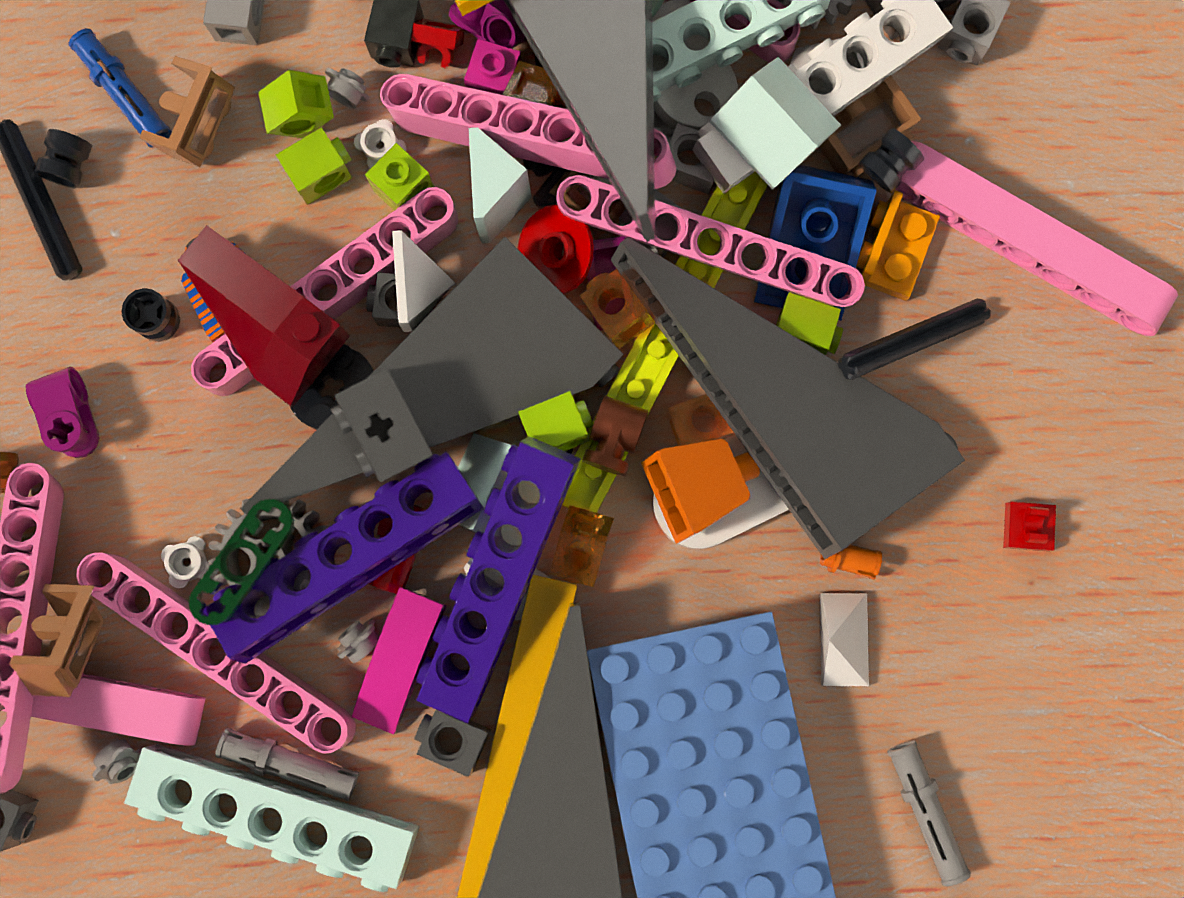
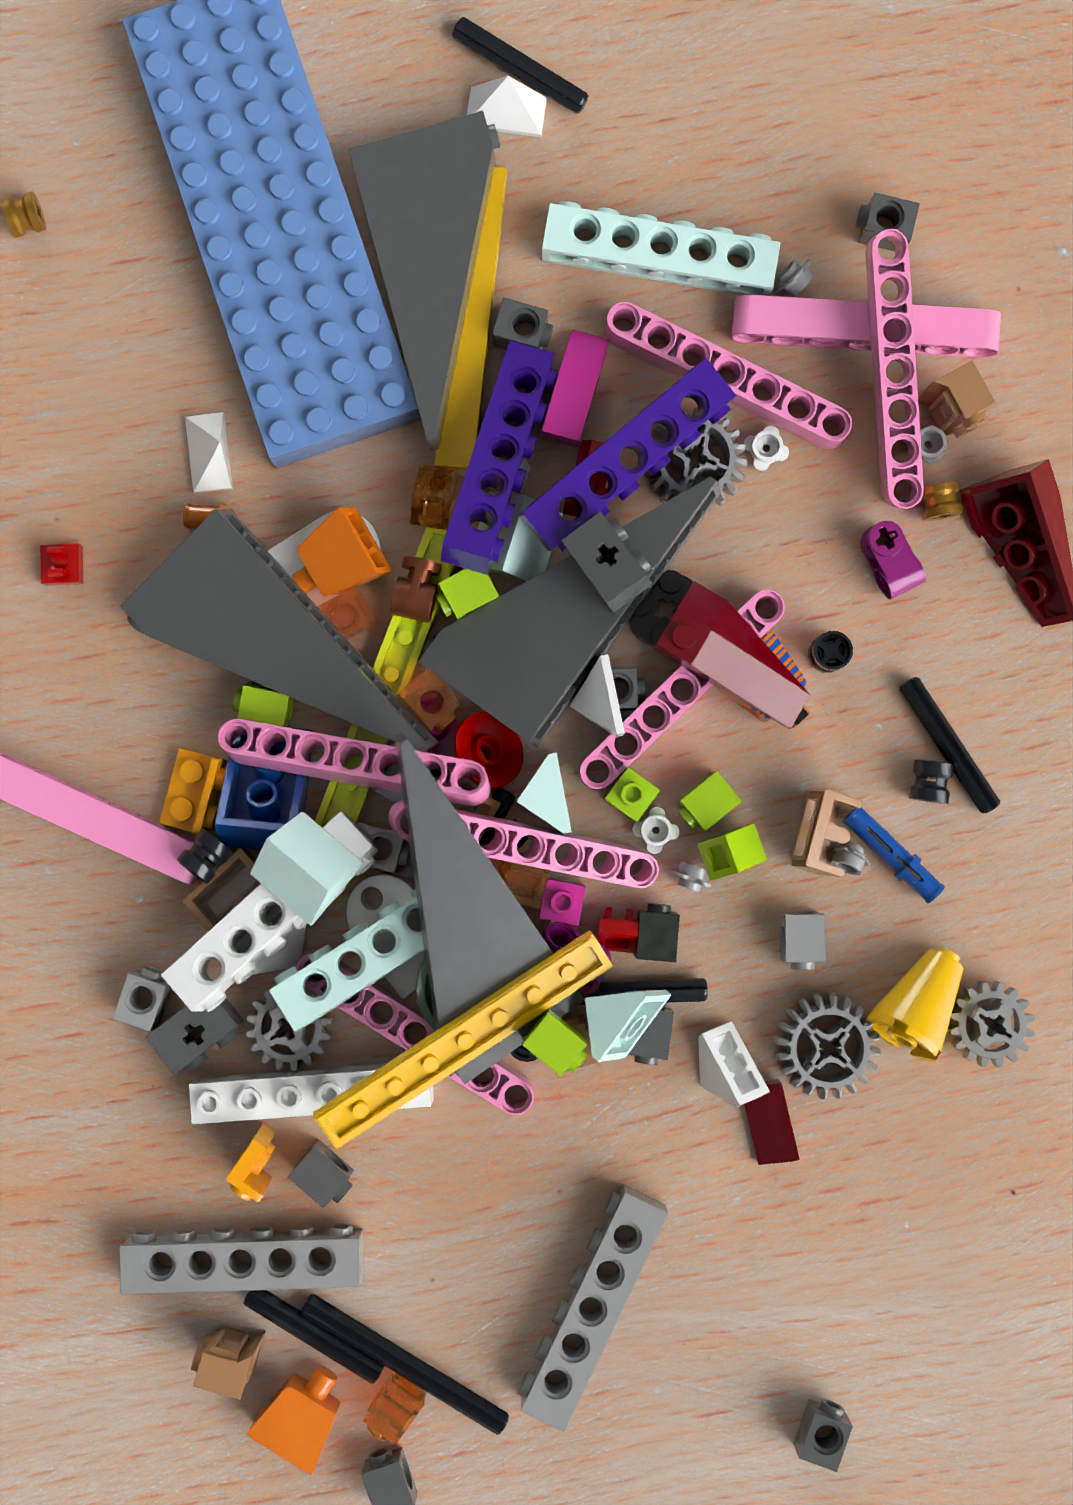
camera: 175 degrees right, 5 degrees up
(71, 637) = (848, 361): medium nougat window -> none
(166, 82) = (850, 858): none -> light grey plate
(230, 598) = (709, 403): dark green beam -> none
(287, 764) = (654, 293): light grey pin -> none
(357, 640) = (611, 399): light grey plate -> none
(913, 338) = (171, 705): black axle -> none
(922, 796) = (134, 333): light grey pin -> none

